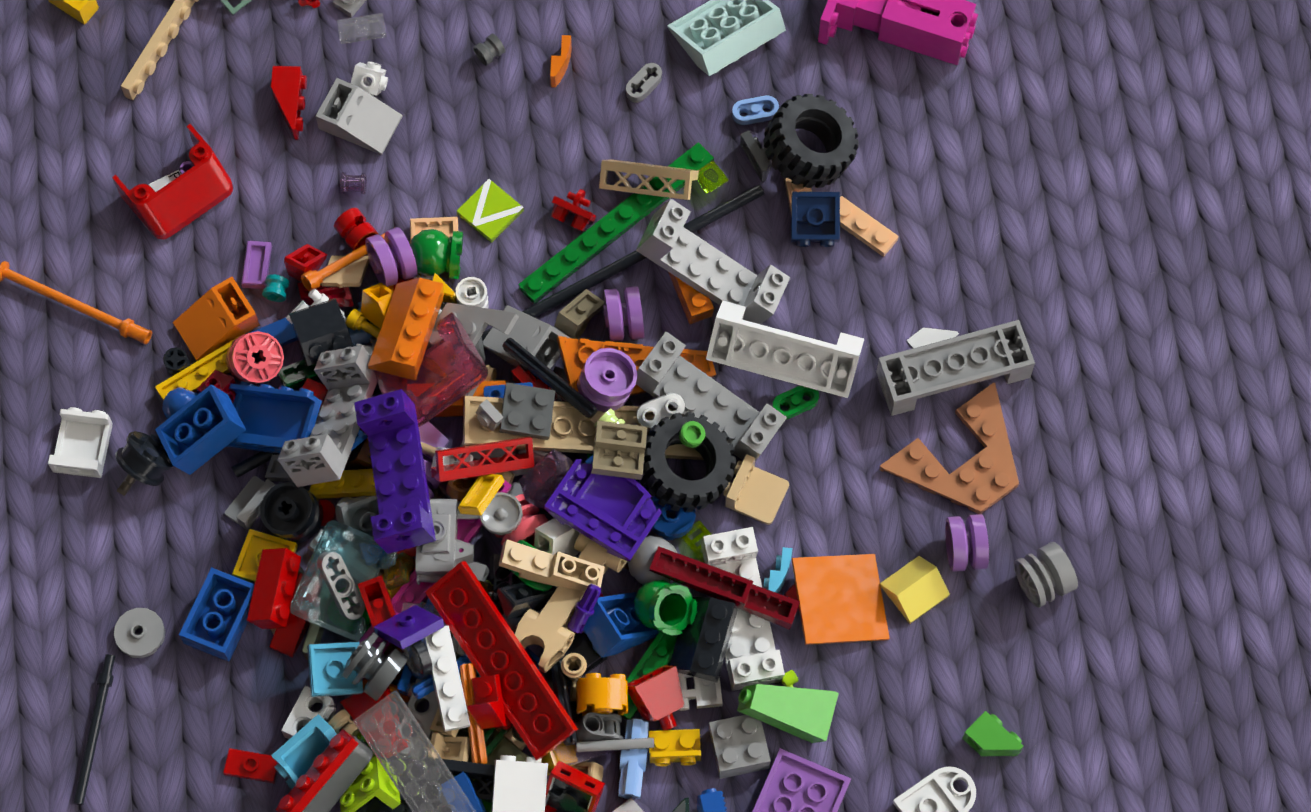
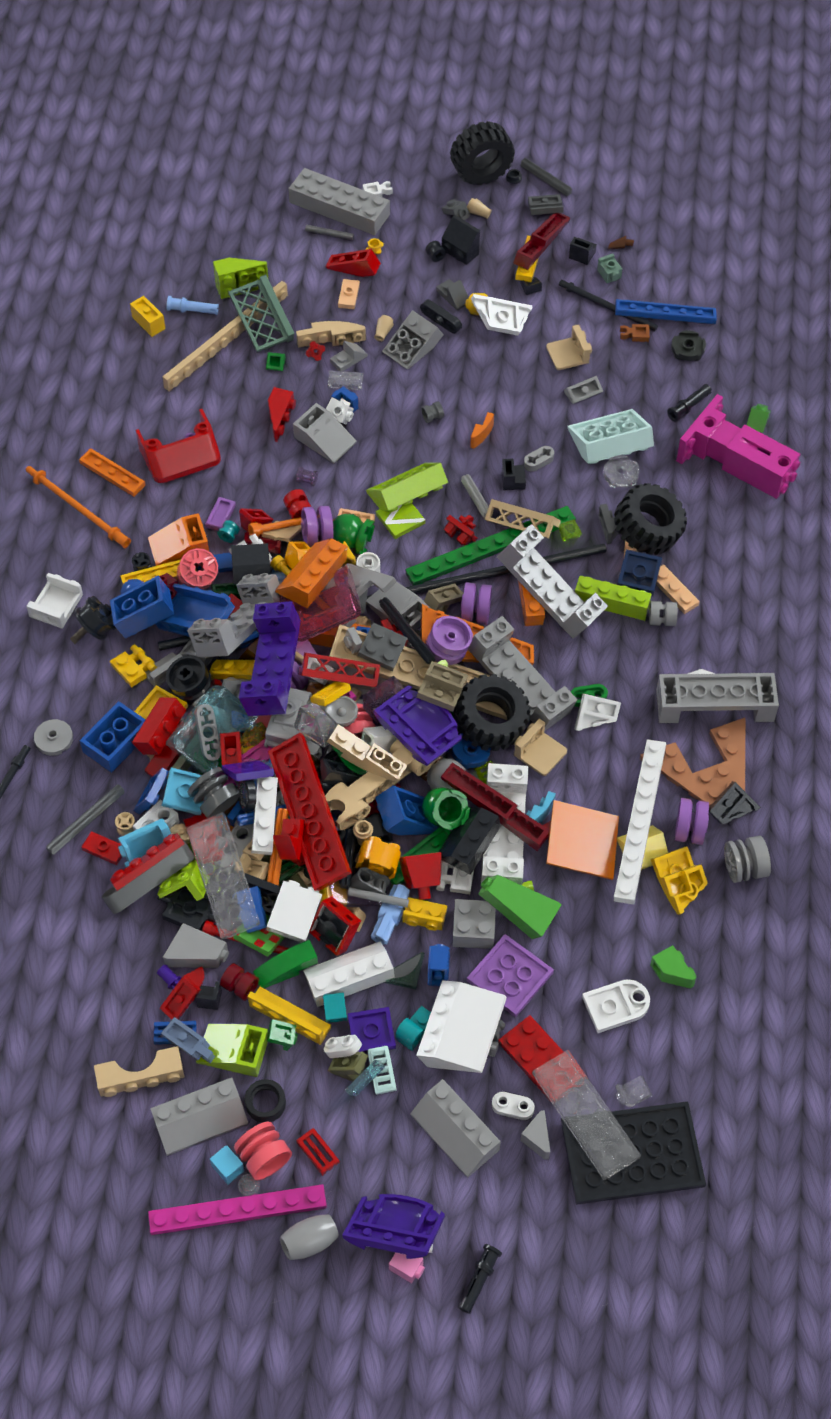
camera: 15 degrees right, 10 degrees down
(96, 240) = (112, 472): none -> orange plate
(206, 514) = (128, 668): none -> yellow plate
(216, 733) = (85, 819): none -> dark grey axle
(261, 23) = (275, 361): none -> green slope
(265, 724) = (122, 820): none -> tan wheel
(289, 677) = (150, 794): none -> blue plate
(371, 54) = (347, 395): none -> blue bracket
(478, 544) = (315, 723): none -> clear slope
(488, 165) = (407, 486): none -> lime slope
(577, 155) = (475, 494): none -> light grey axle
(584, 608) = (383, 791): dark purple axle -> none
(618, 116) = (513, 475): none -> black piece
(659, 407) = (483, 668): white plate -> none
(692, 434) = (500, 690): bright green tile -> none
(753, 88) = (621, 480): none -> clear plate
(754, 109) = (614, 492): light blue plate -> none
(783, 353) = (589, 656): white plate -> none
(793, 259) = (618, 598): none -> lime brick
(810, 422) = (596, 711): none -> white wing
(866, 263) = (669, 613): none -> light grey wheel
(905, 560) = (640, 822): none -> white plate
(969, 616) = (679, 877): none -> yellow slope
(1008, 504) = (732, 804): none -> black wing

